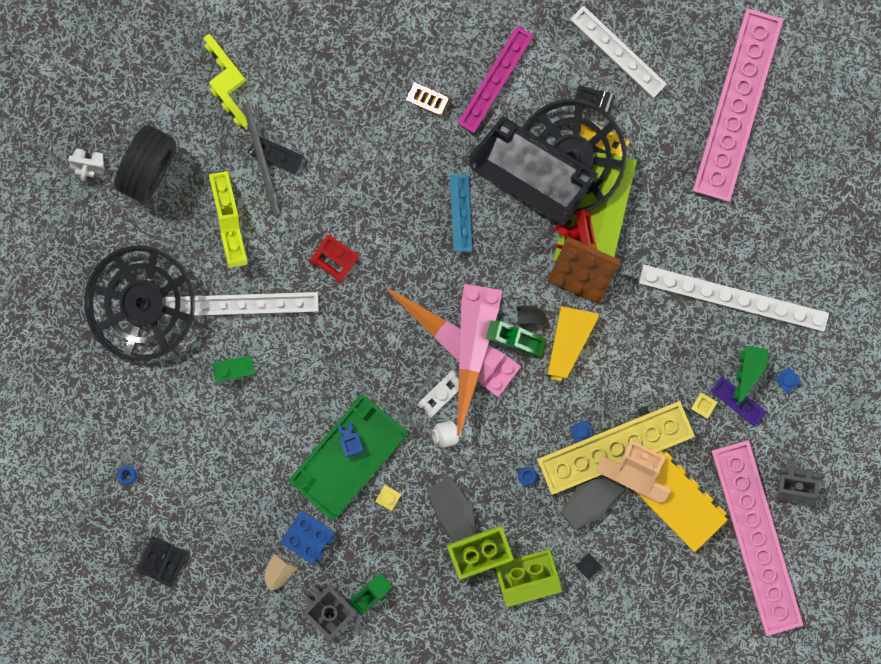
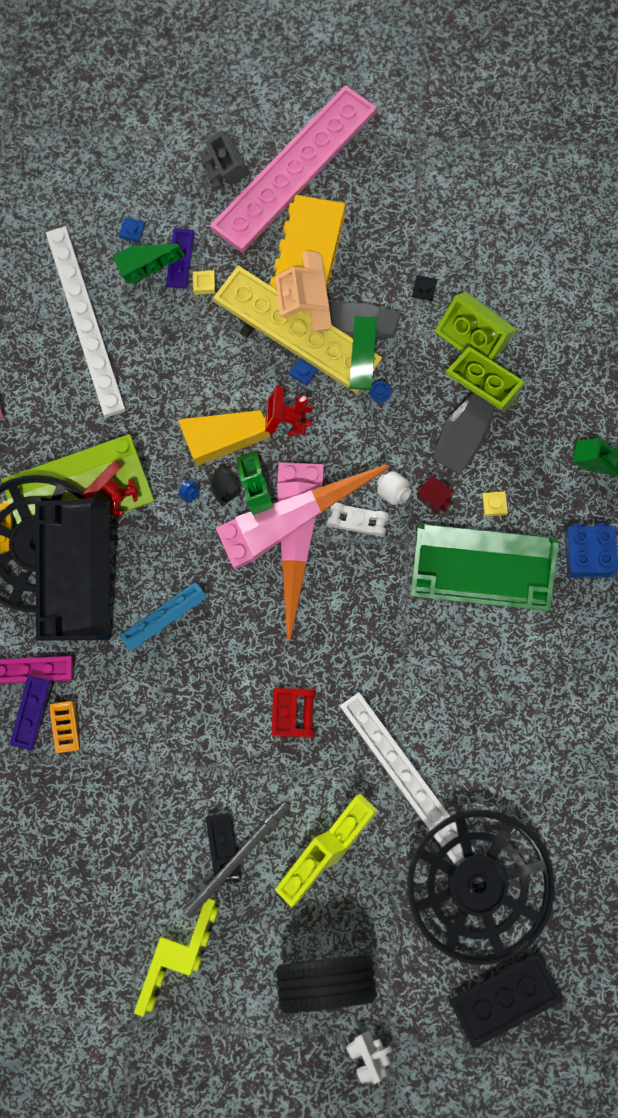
camera: 115 degrees left, 15 degrees down
(63, 271) = (505, 1000): none -> black plate
(233, 368) = (479, 740): green slope -> none
(350, 442) = (468, 571): blue plate -> none
(420, 459) = (435, 495): none -> dark red brick
(452, 82) = (30, 712): none -> dark purple tile
(542, 289) = (189, 491): none -> blue plate
(556, 389) = (279, 411): none -> red piece
(560, 480) = (363, 353): none -> green slope
(583, 270) = (143, 459): dark orange plate -> none

